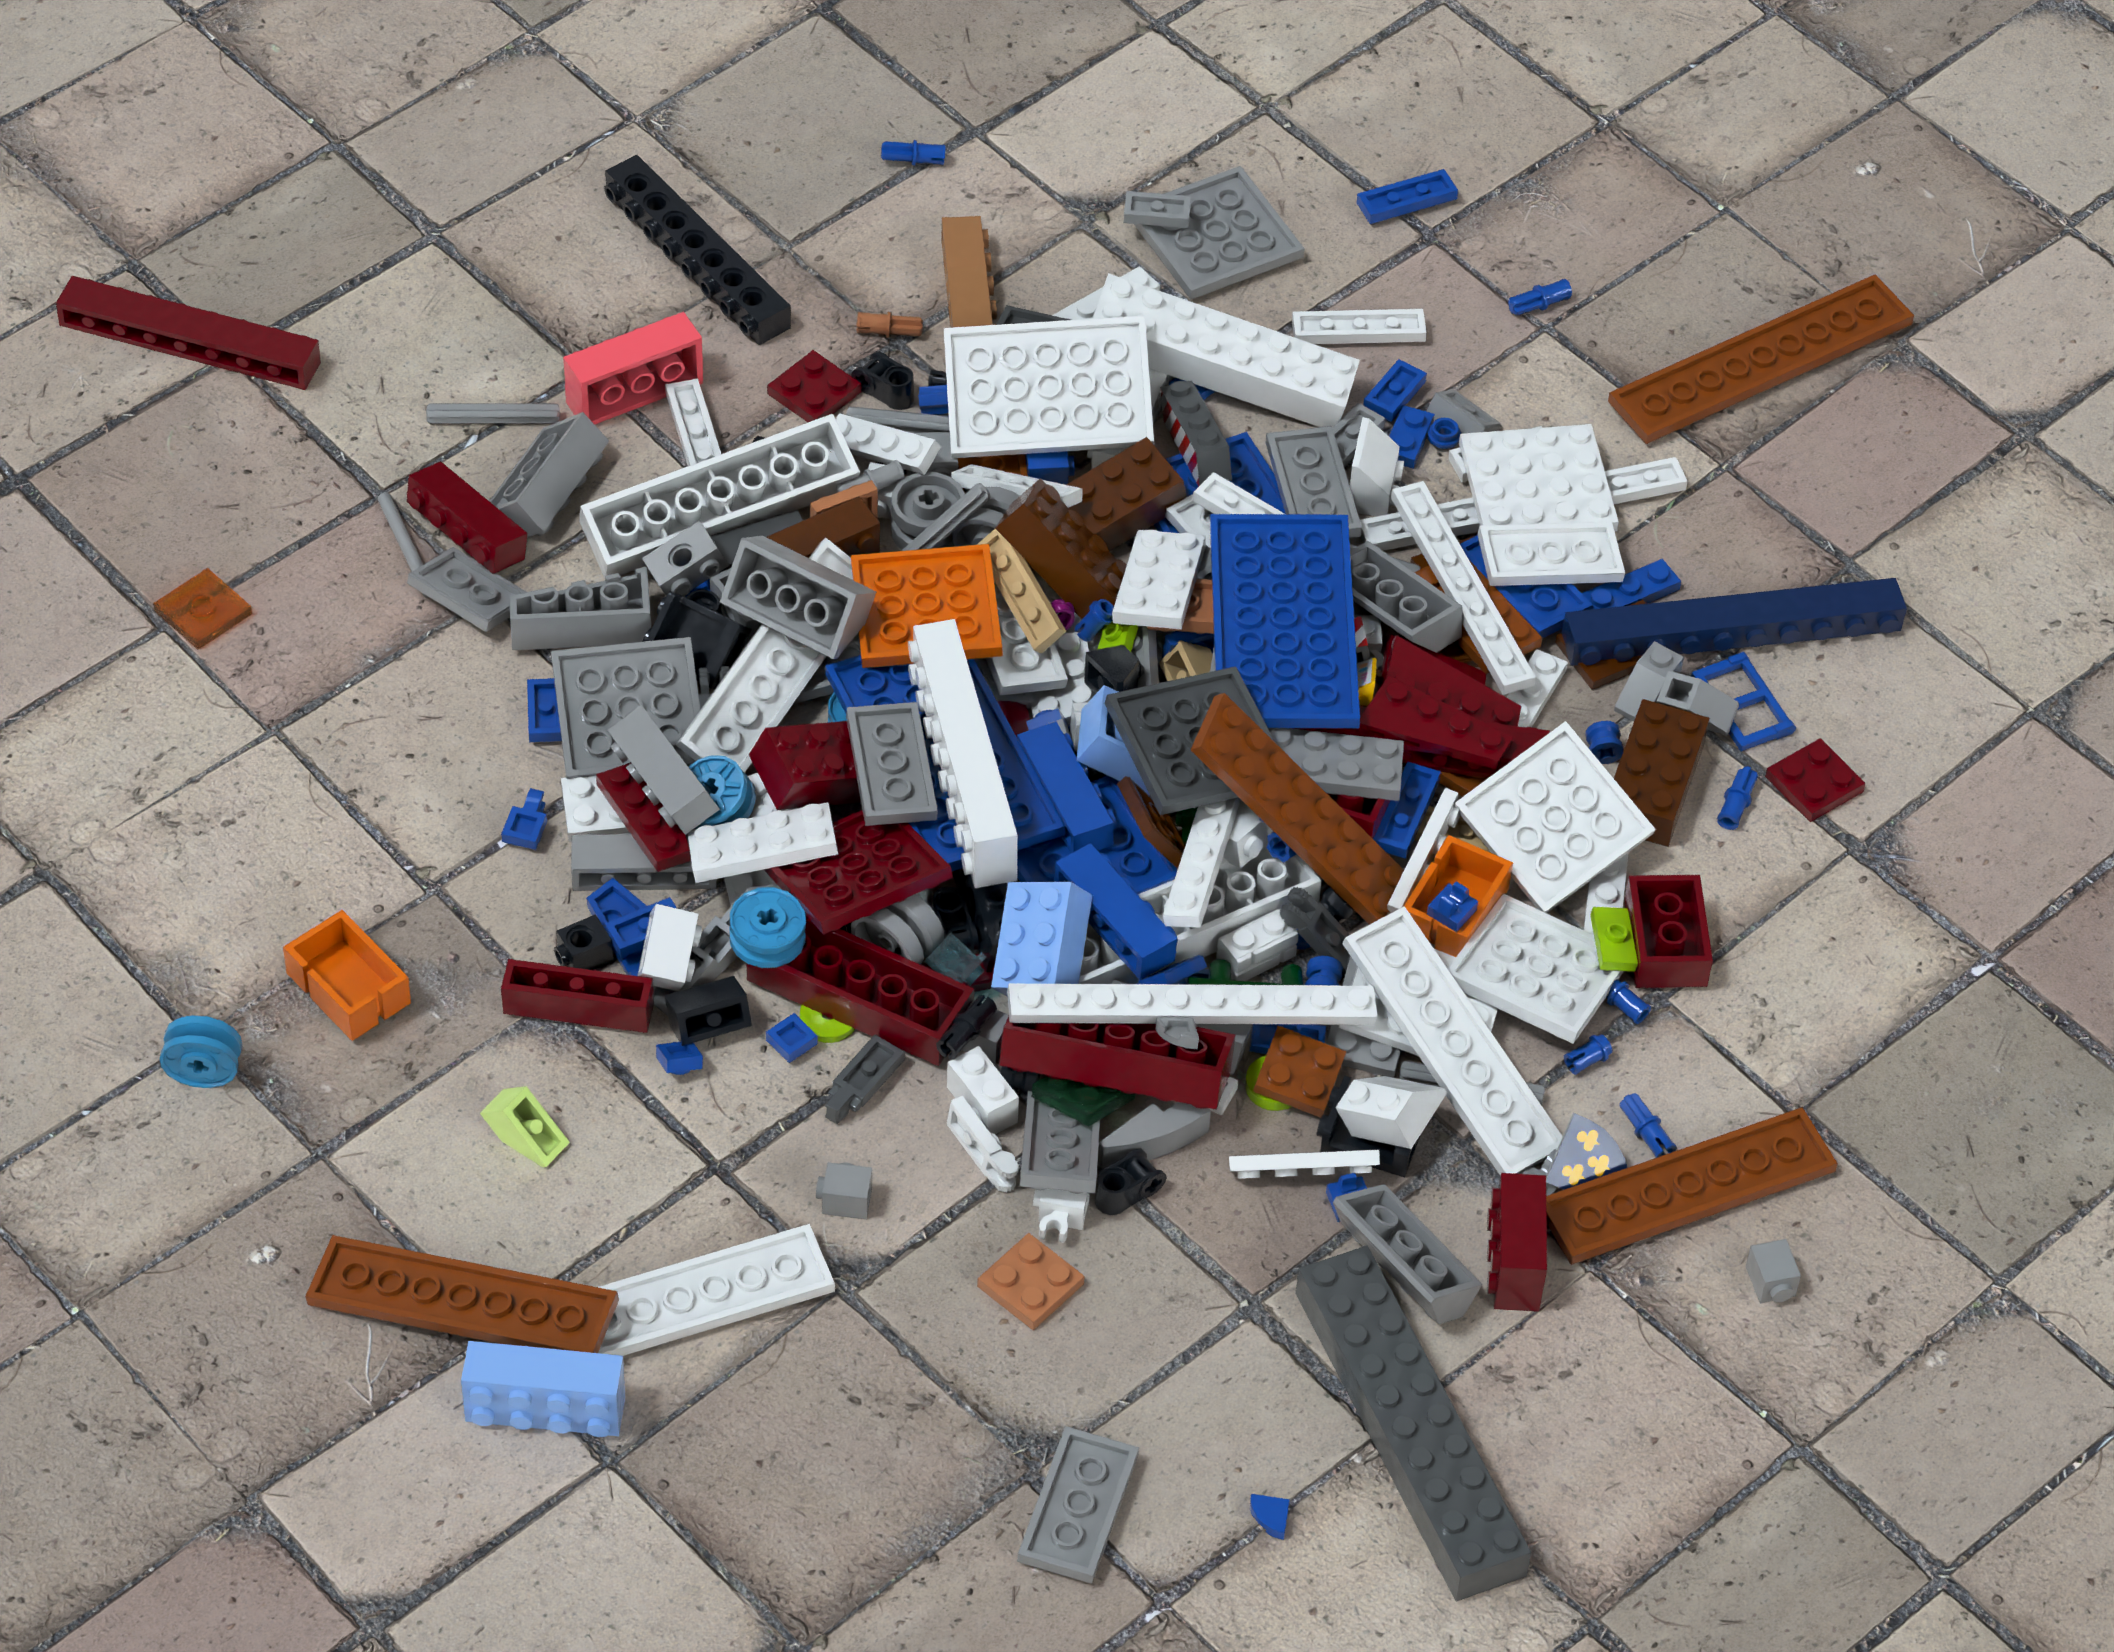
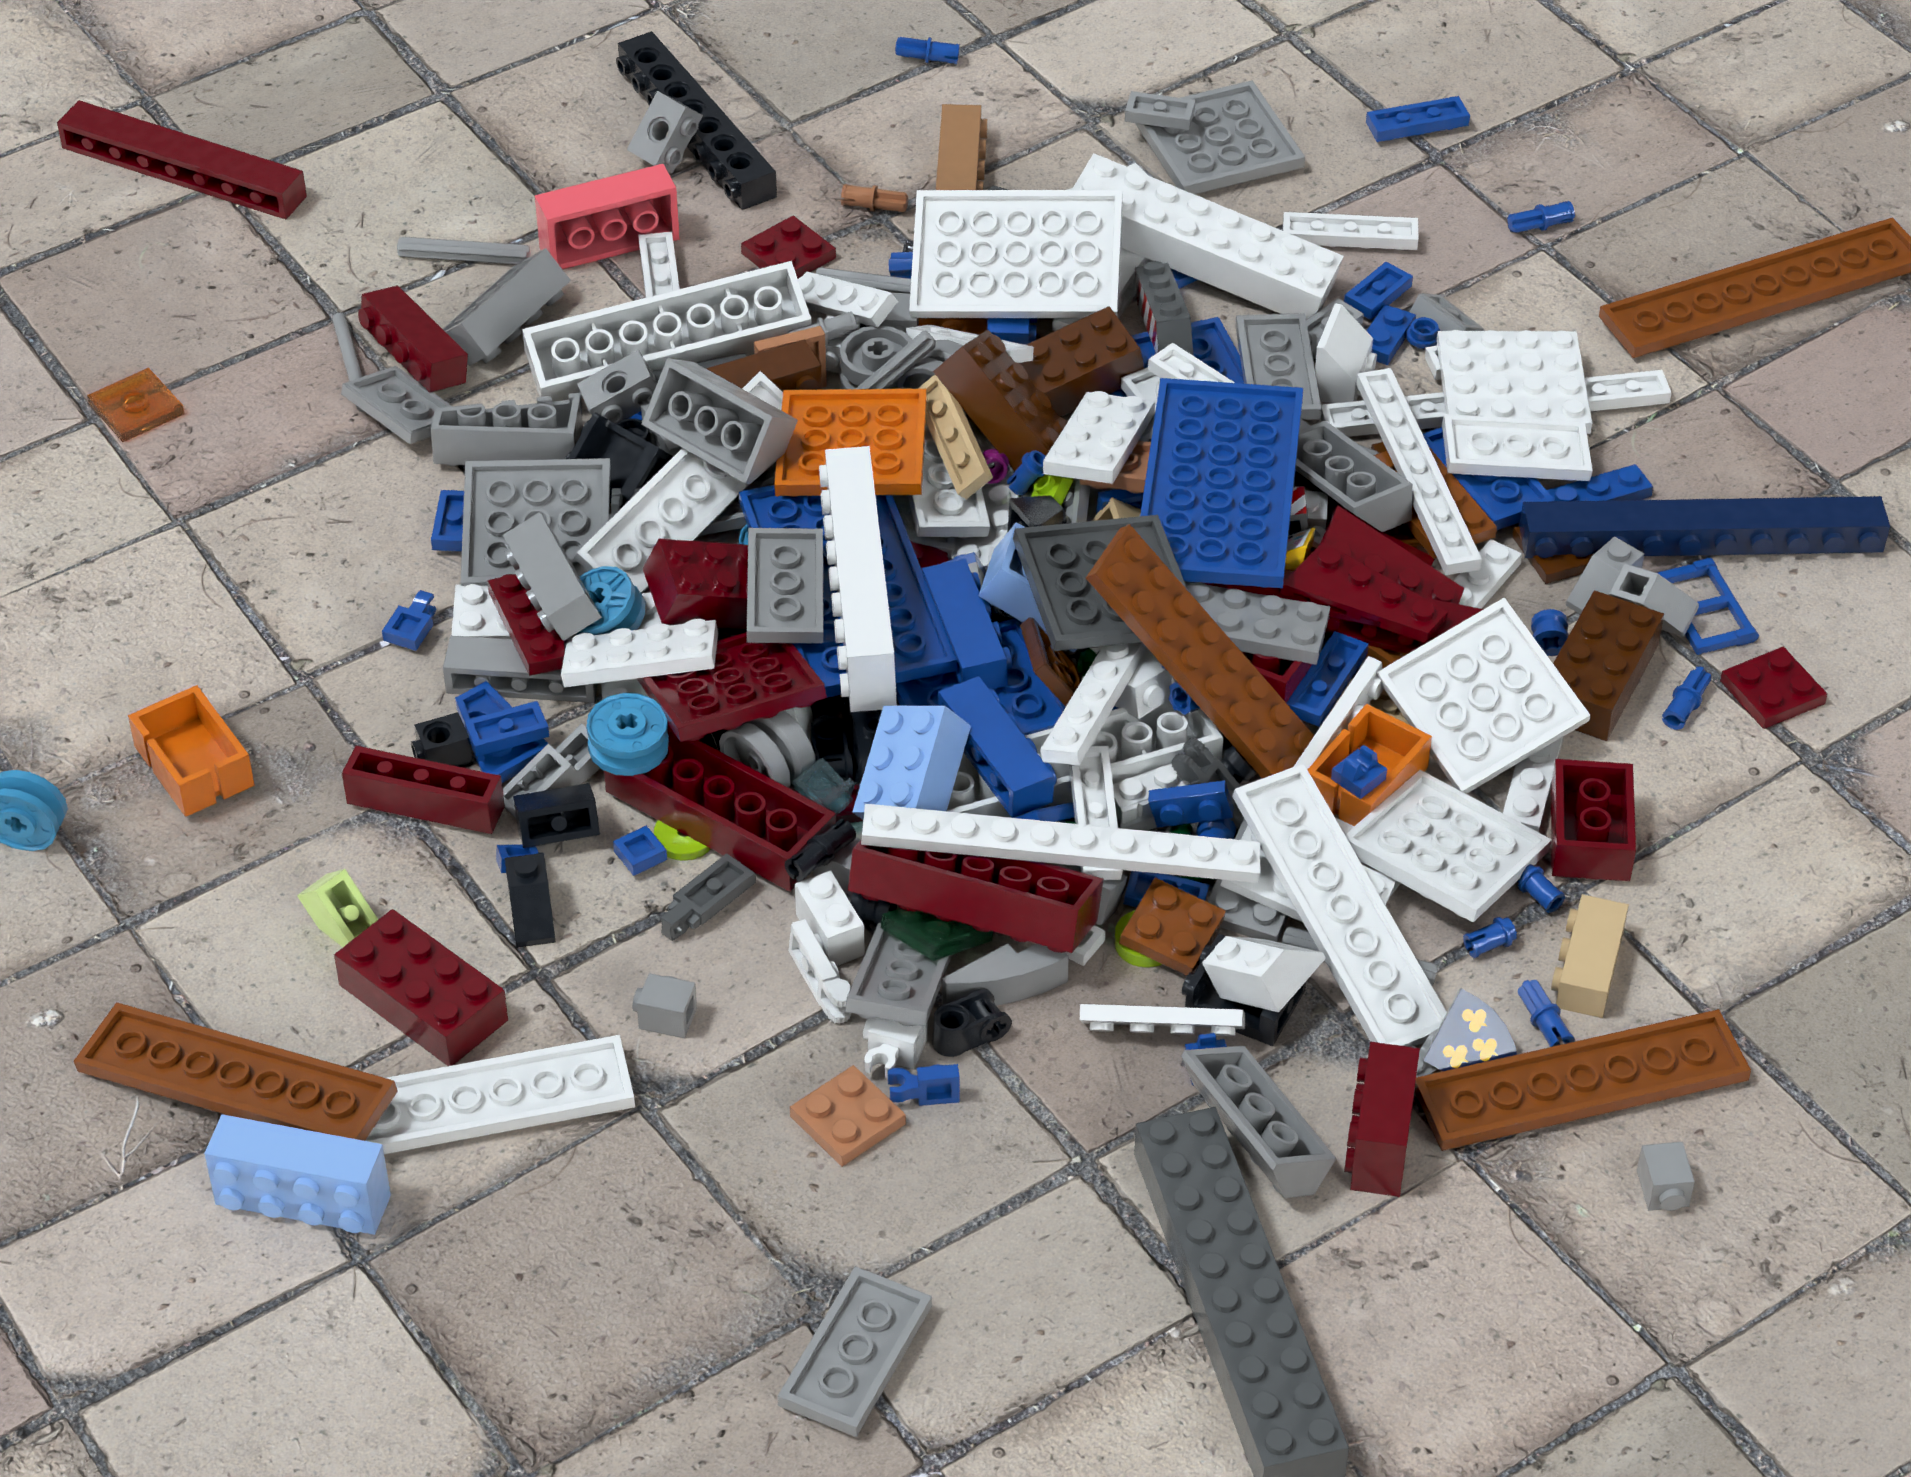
camera: 10 degrees right, 5 degrees down
(615, 1194) = (421, 987): none -> dark red brick
(657, 277) = (650, 138): none -> light grey brick
(669, 946) = (524, 746): white brick -> none
(699, 1097) = (530, 900): none -> black slope
(887, 381) = (861, 247): black piece -> none
(1103, 1246) = (931, 1085): none -> blue plate
(1178, 1031) = (1040, 868): light grey tile -> none
(1215, 957) = (1095, 799): none -> white plate
(1270, 1513) = (1067, 1381): blue tile -> none
(1301, 950) = (1191, 803): none -> blue plate
(1614, 939) = (1532, 822): lime plate -> none
(1680, 1064) = (1589, 955): none -> tan brick

